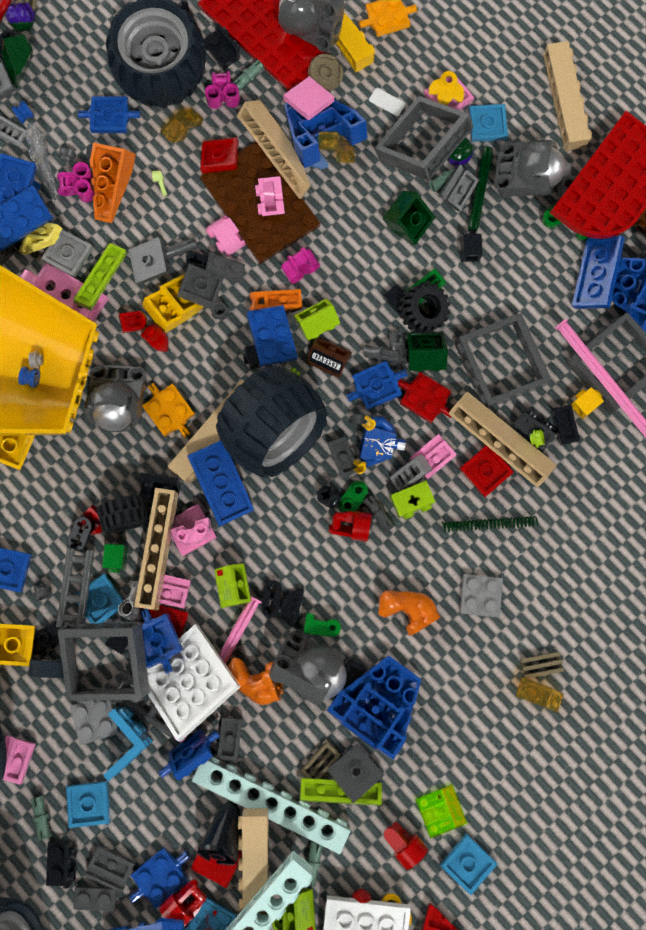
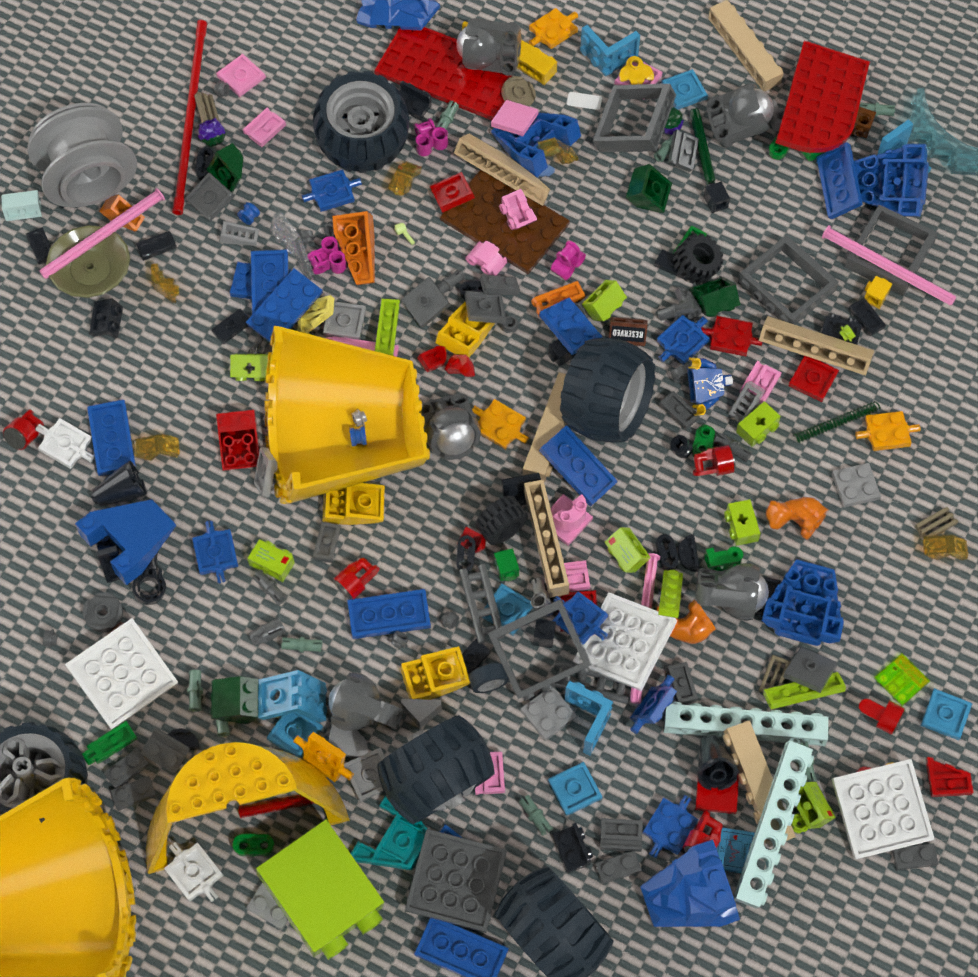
camera: 20 degrees left, 15 degrees down
(73, 28) = (264, 127): none -> bright pink plate
(250, 651) = (670, 593): none -> lime plate
(361, 586) = (743, 512): none -> lime brick
(433, 64) = (610, 58): none -> dark azure bracket
(535, 551) = (887, 431): none -> light orange plate

